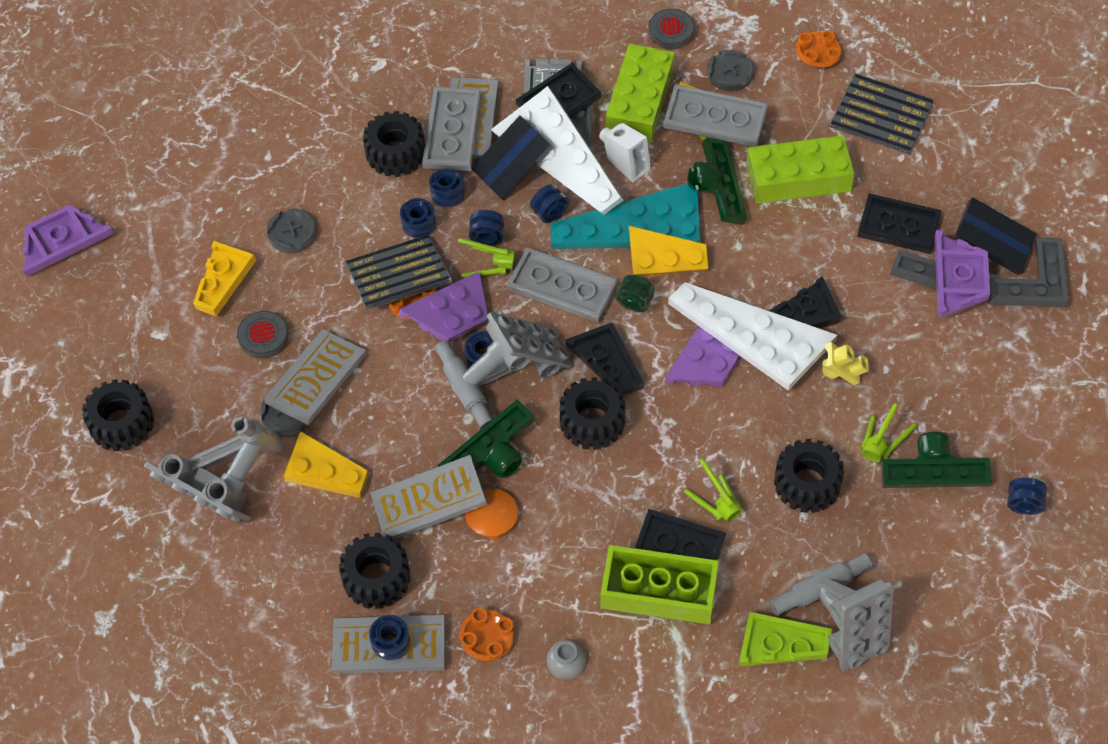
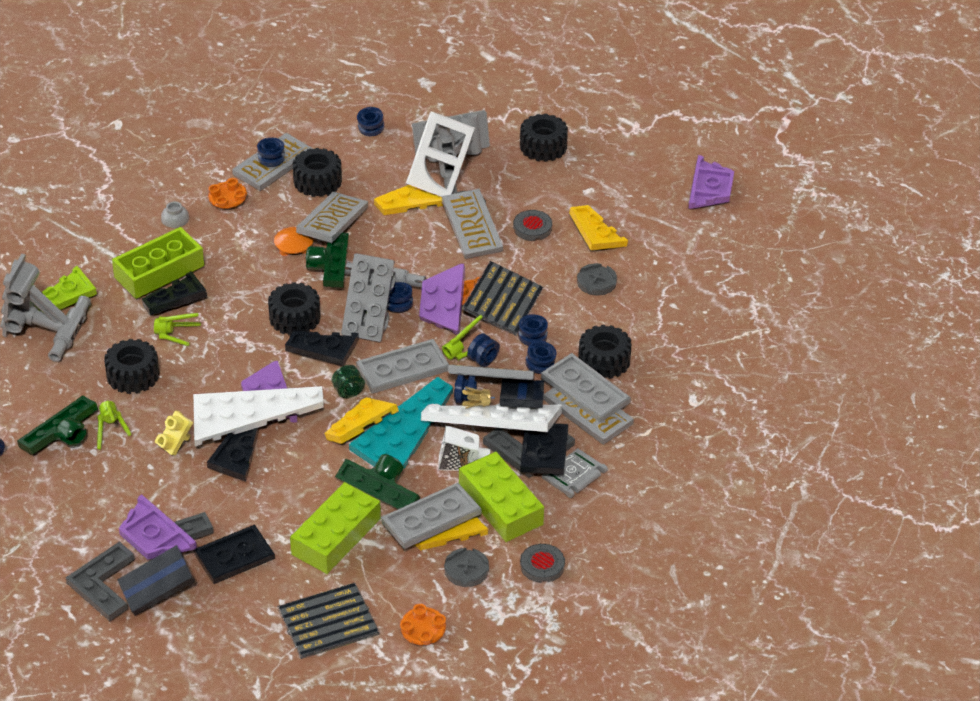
camera: 130 degrees right, 15 degrees down
(232, 590) = (370, 121): none -> dark blue wheel
(271, 427) = (419, 175): none -> white window
(505, 191) = (491, 372): none -> light grey tile
(555, 172) = (477, 397): none -> pearl gold piece

